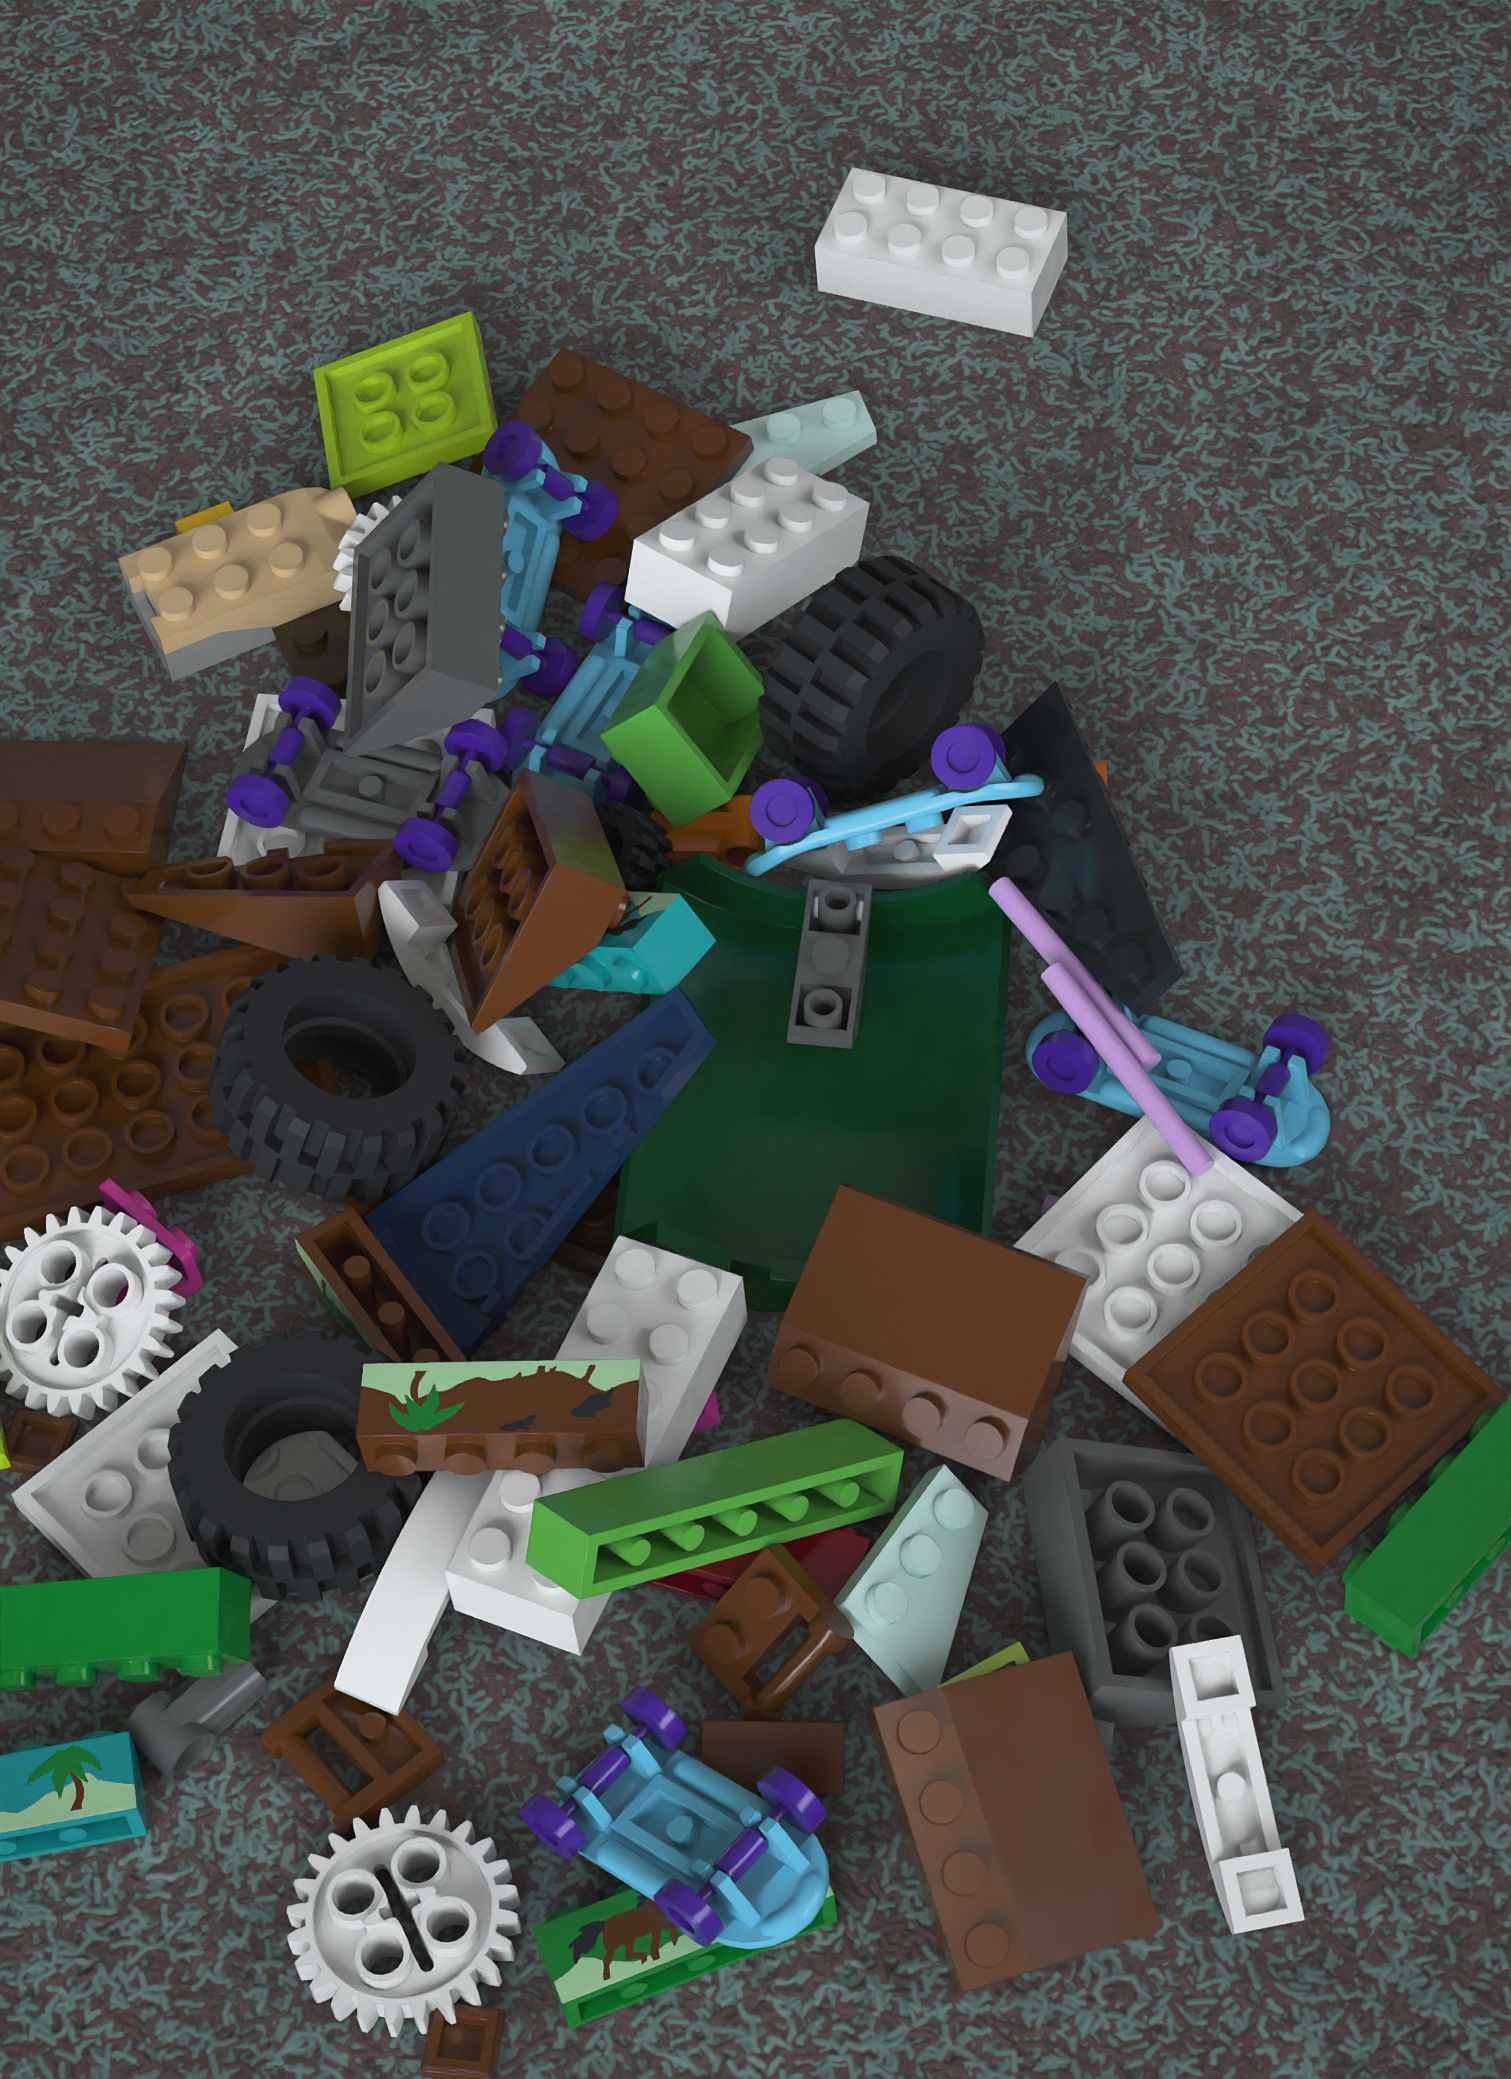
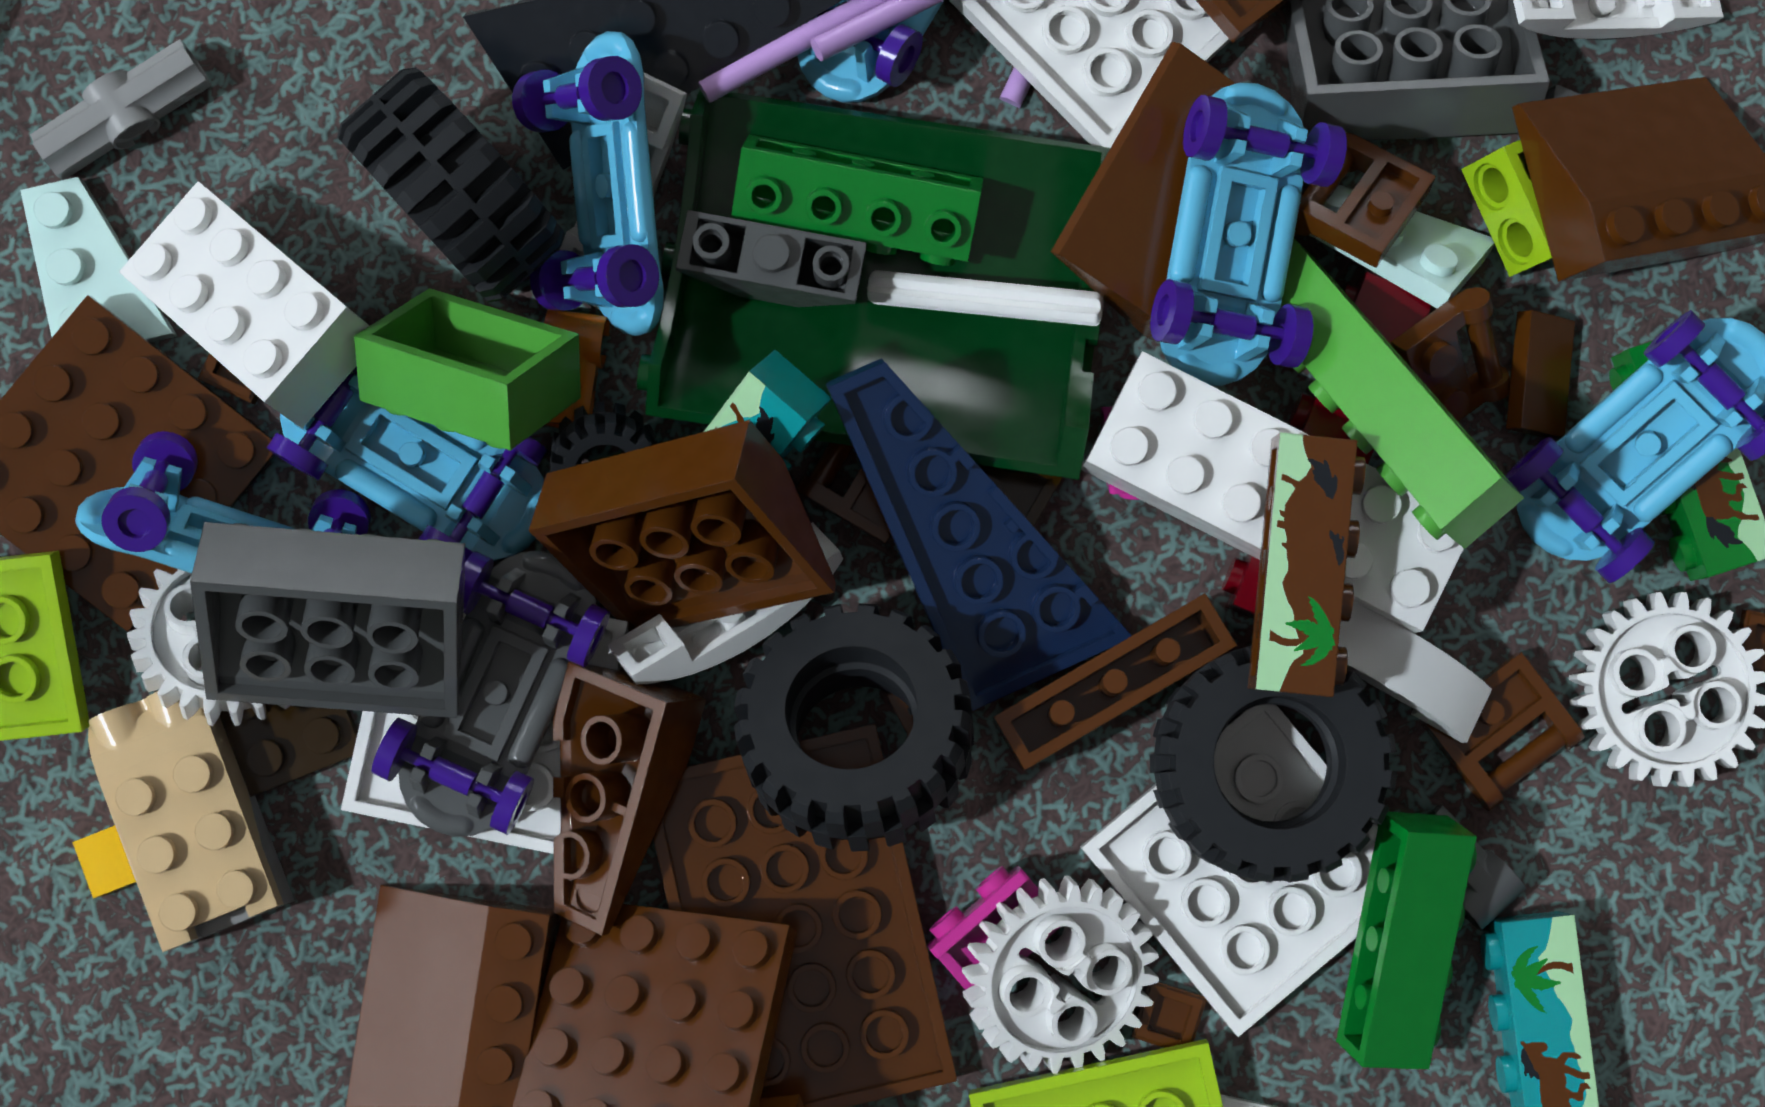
camera: 90 degrees left, 30 degrees up
(808, 1169) = (985, 298): none -> white axle
(885, 1359) = (1237, 234): none -> medium azure piece
(907, 1047) = (858, 199): none -> green brick
(939, 1524) = (1374, 209): none -> reddish brown plate
(946, 453) = (120, 109): none -> light grey piece

